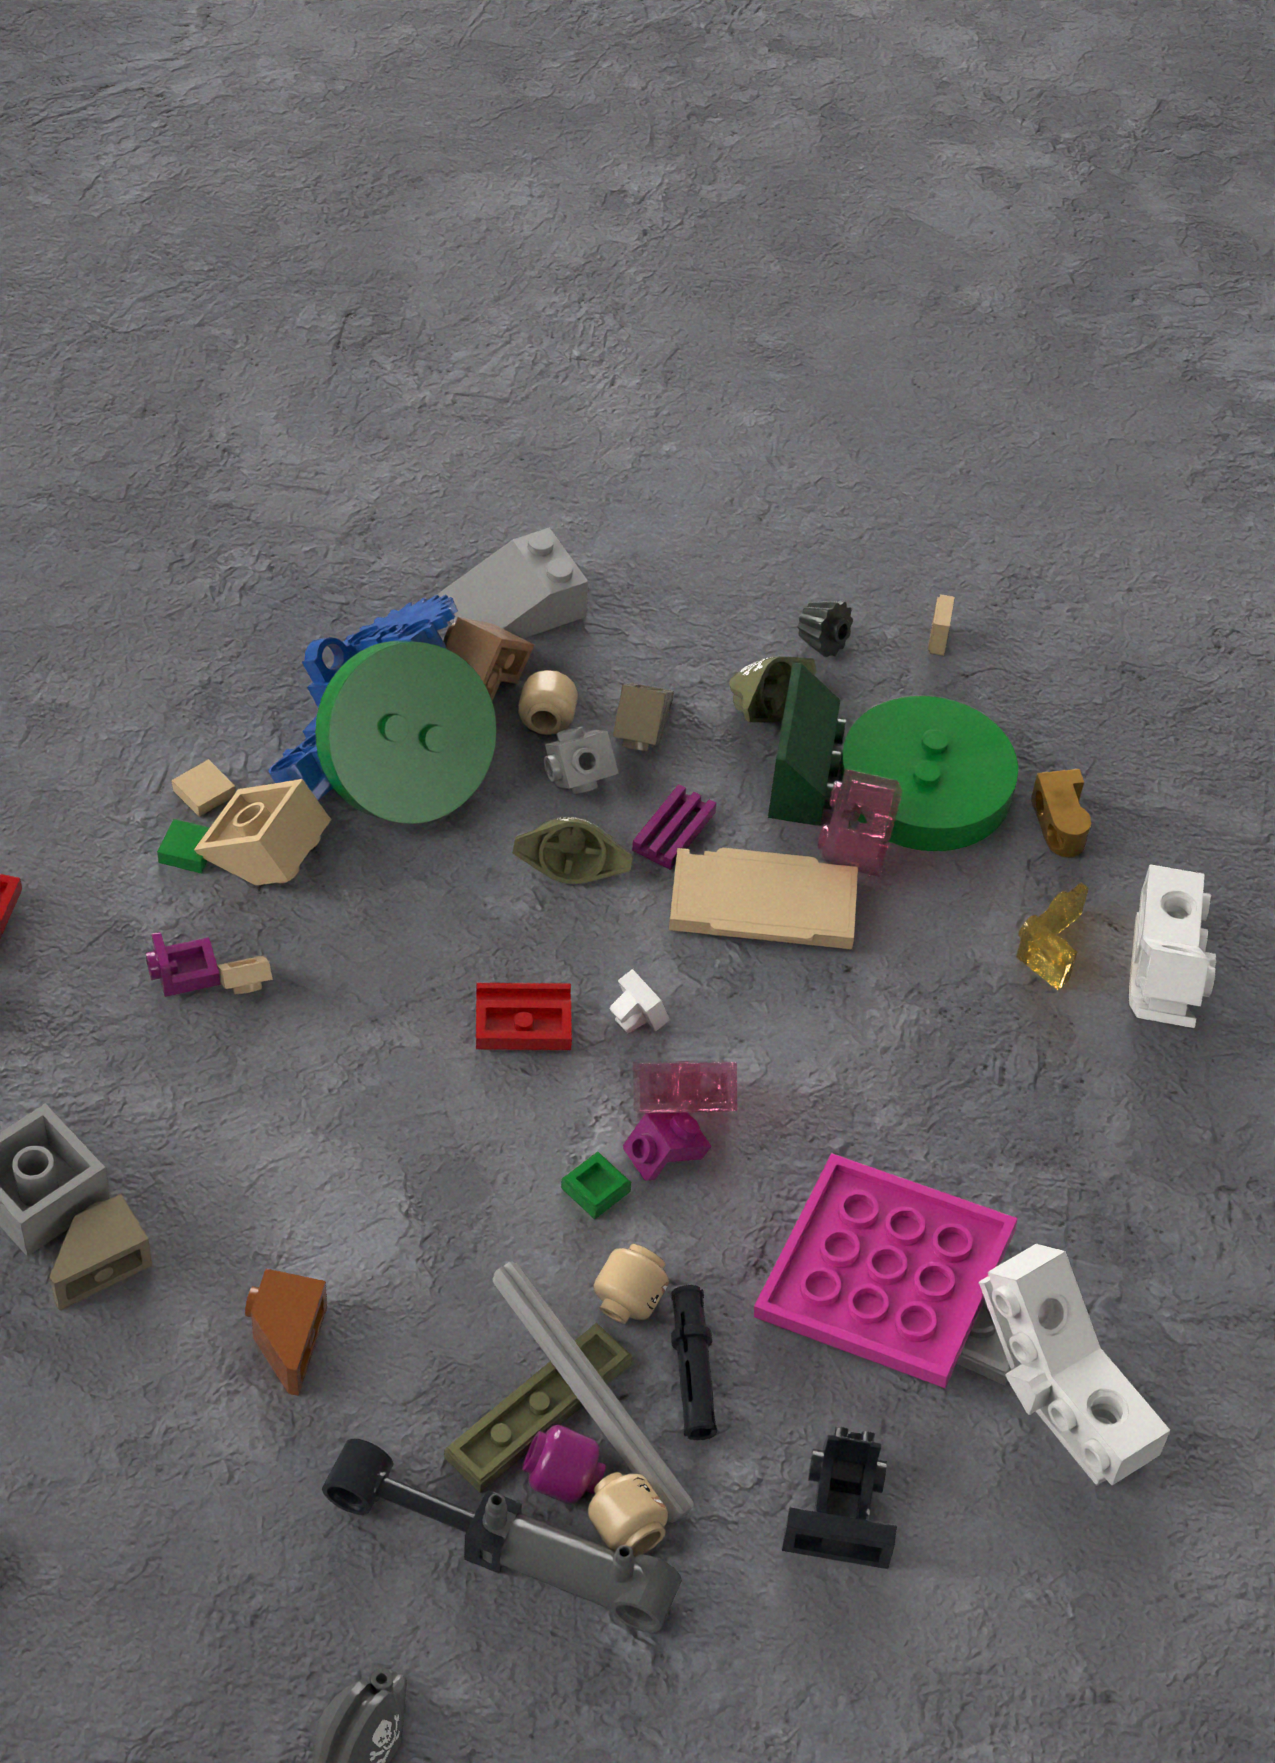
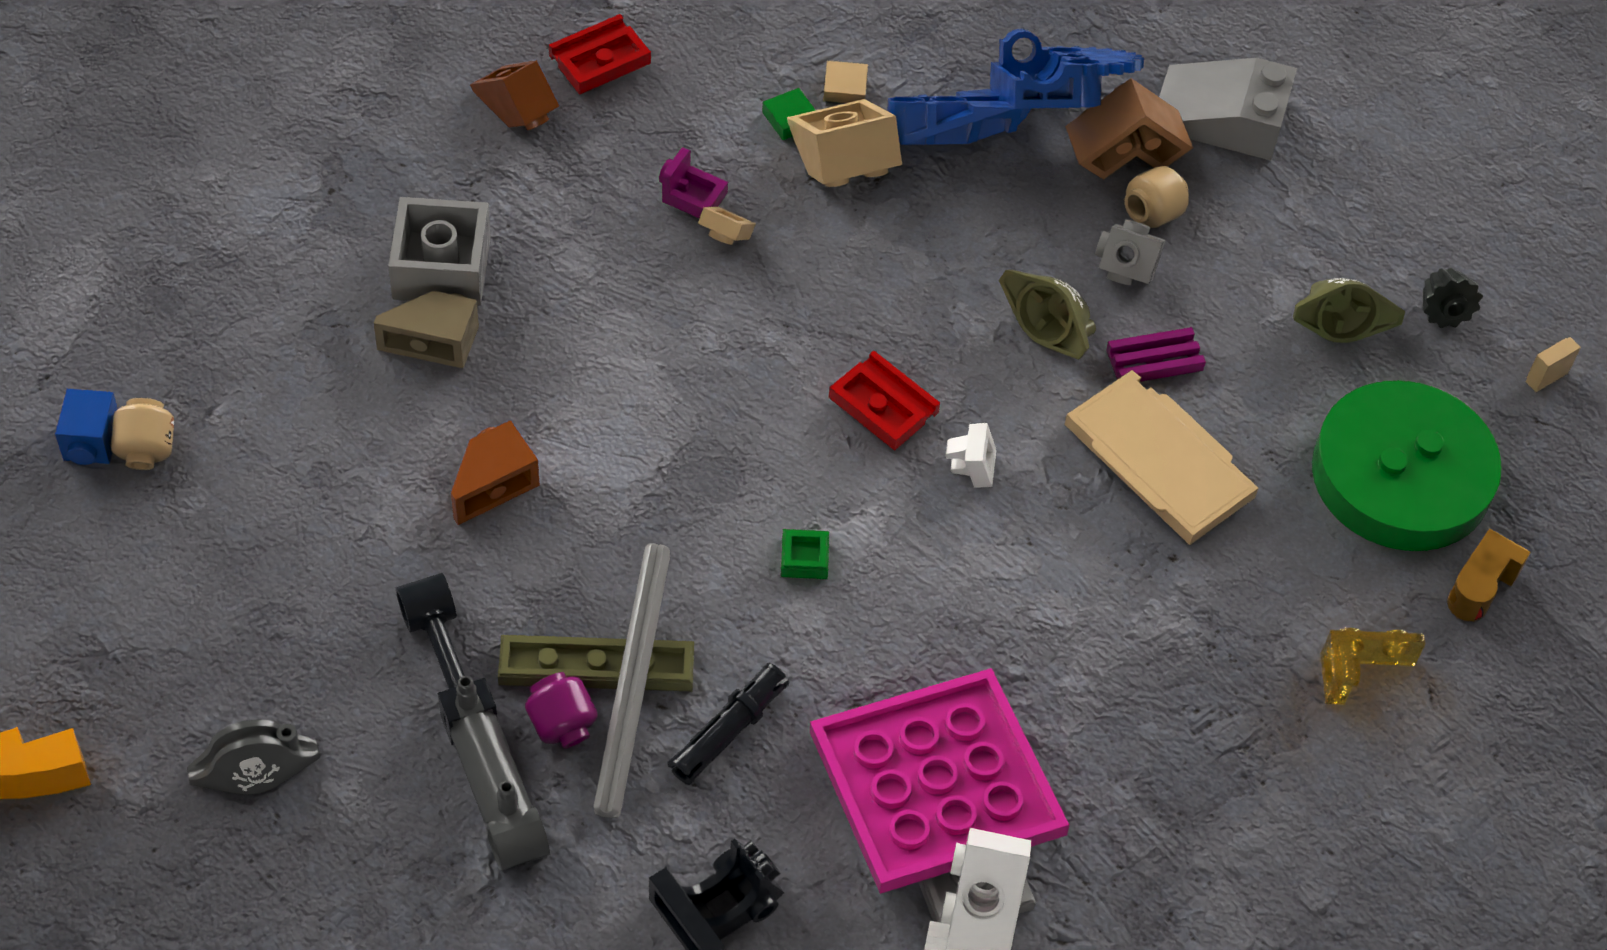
camera: 45 degrees right, 5 degrees up
(406, 731) = (1003, 134): green brick -> none
(628, 1512) = (563, 777): tan head -> none
(631, 1283) = (743, 635): tan head -> none
(642, 715) = (1221, 256): dark tan slope -> none
(664, 1139) = (885, 562): magenta bracket -> none
(685, 1086) = (934, 534): clear pink brick -> none
(806, 750) = (1314, 368): dark green slope -> none
(867, 845) = (1314, 457): clear pink brick -> none
(1170, 947) = (1426, 748): white brick -> none

